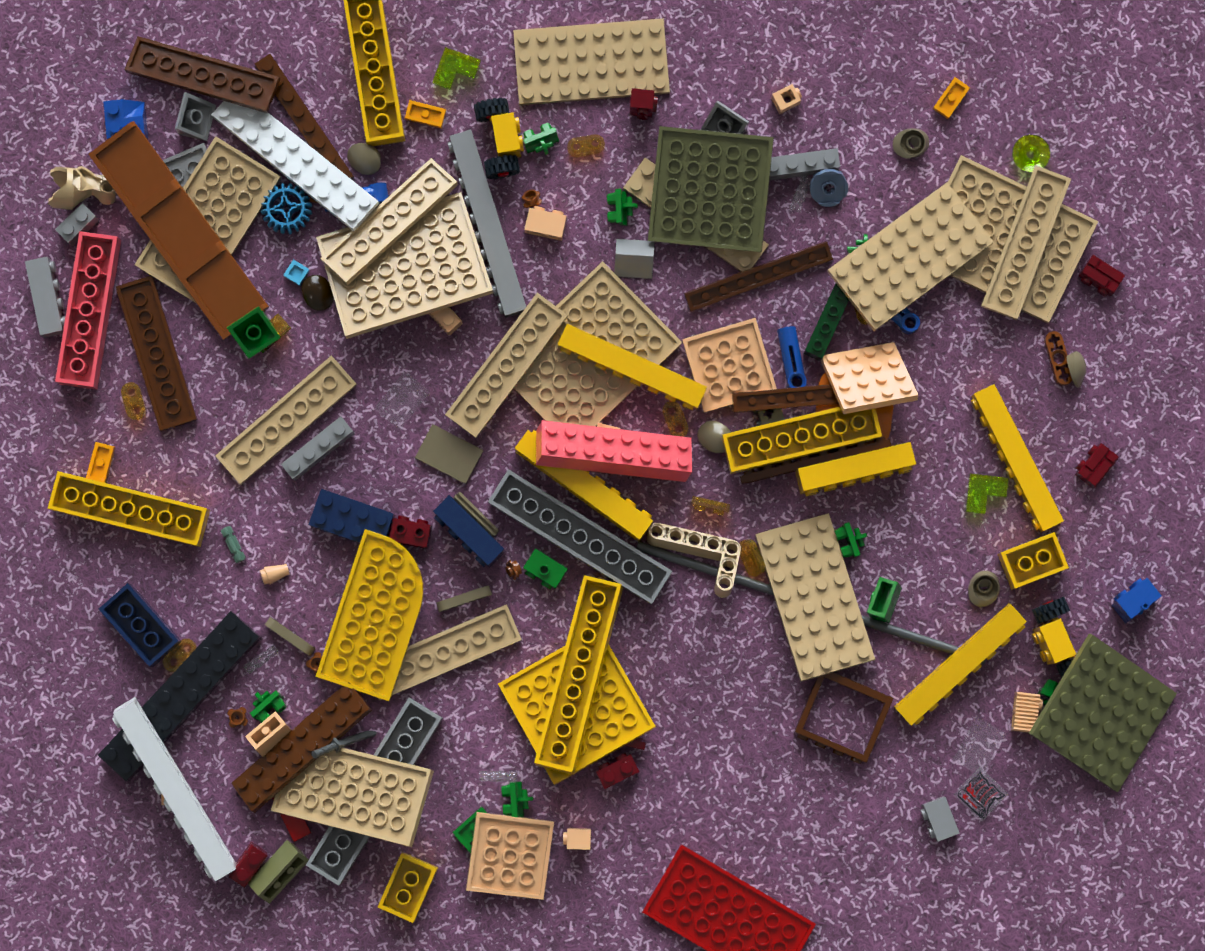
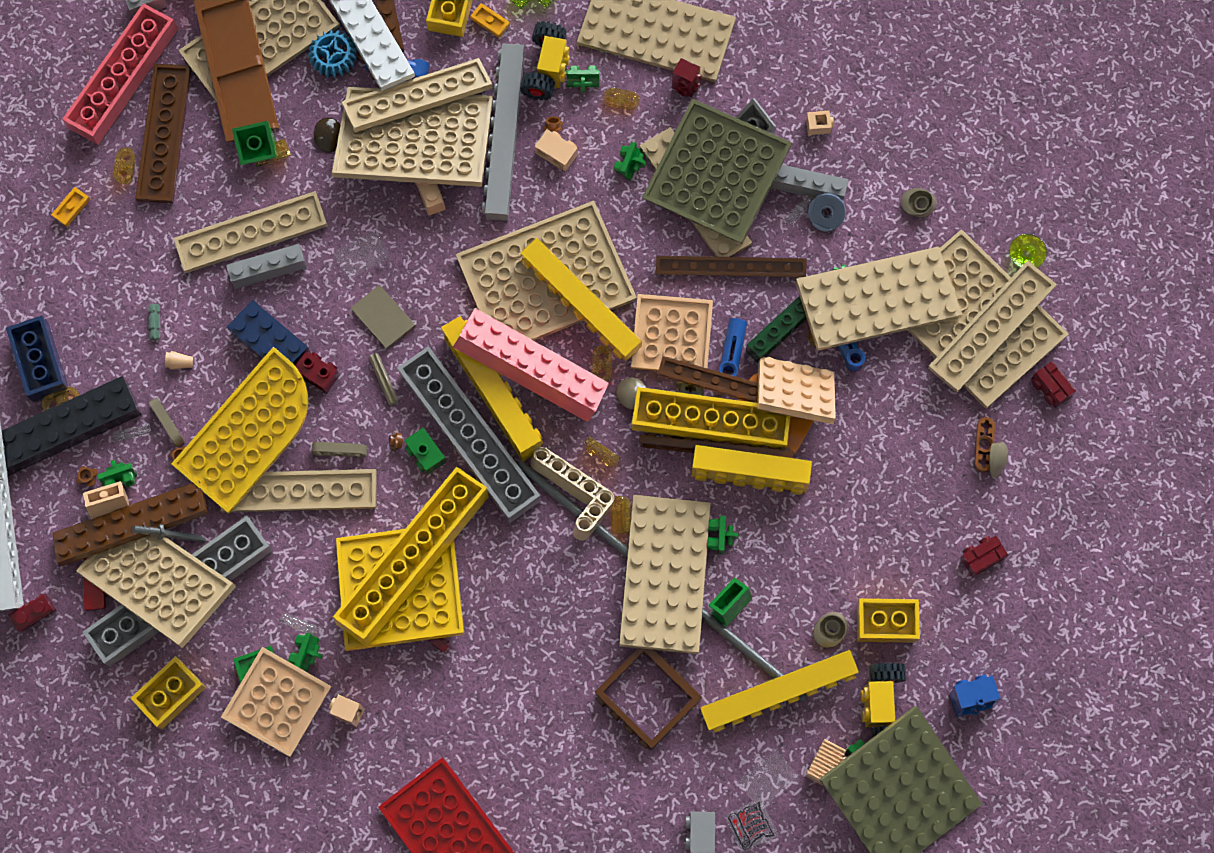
camera: 25 degrees right, 10 degrees down
(45, 296) = (90, 48): light grey brick -> none
(129, 509) = (76, 254): yellow brick -> none
(278, 871) = (56, 630): olive brick -> none
(296, 272) = (317, 110): medium azure plate -> none
(364, 158) = (420, 37): dark tan hat -> none
(472, 534) = (366, 384): dark blue brick -> none
(506, 365) = (467, 256): tan plate -> none
(621, 769) = (411, 663): dark red brick -> none
(634, 258) = (623, 210): light grey slope -> none
(951, 98) = (971, 177): light orange plate -> none
(982, 486) = (866, 534): clear neon green plate -> none
(1017, 458) = (909, 521): yellow brick -> none

